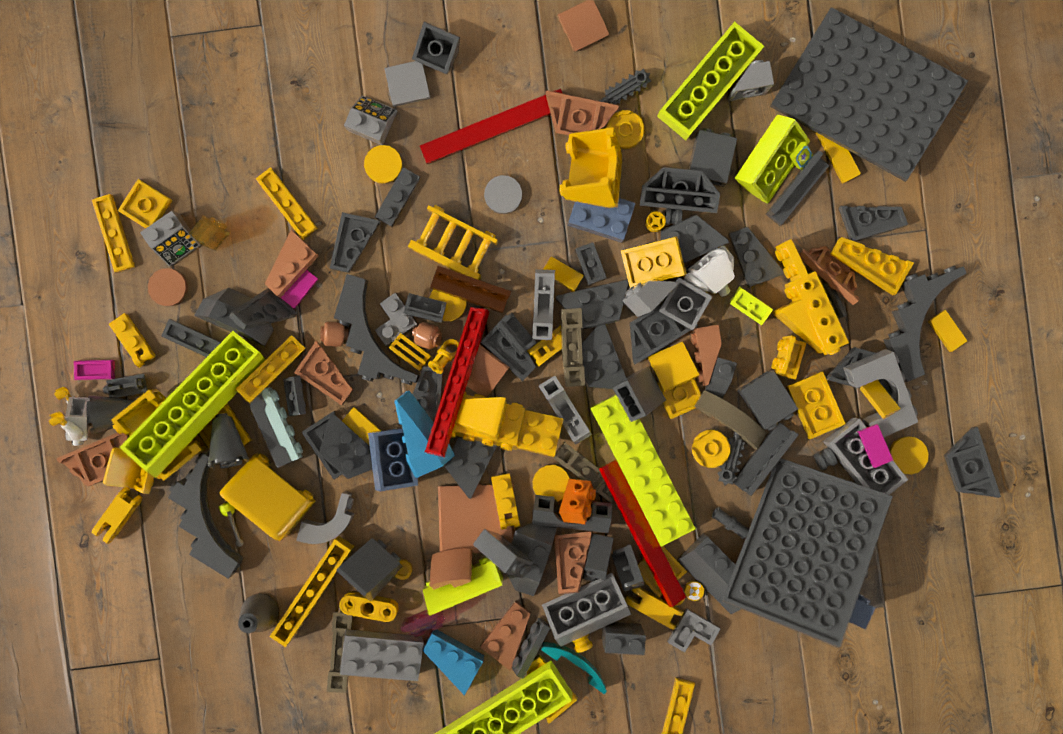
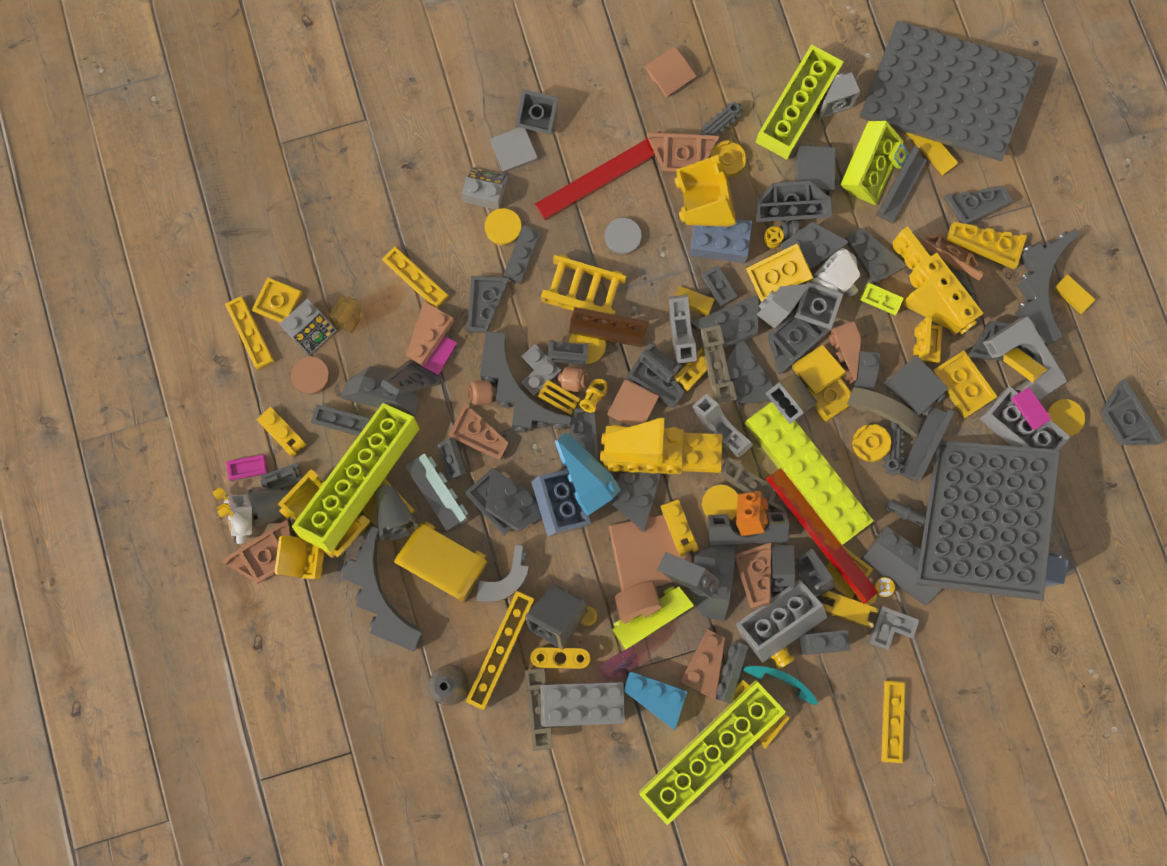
camera: 15 degrees left, 10 degrees down
(117, 515) = (289, 608): yellow piece -> none
(228, 510) = (401, 585): hinge -> none
(270, 369) = (425, 435): yellow plate -> none
(360, 424) = (520, 476): yellow tile -> none
(457, 382) = (612, 416): red tile -> none
(825, 459) = (985, 433): dark grey wheel -> none

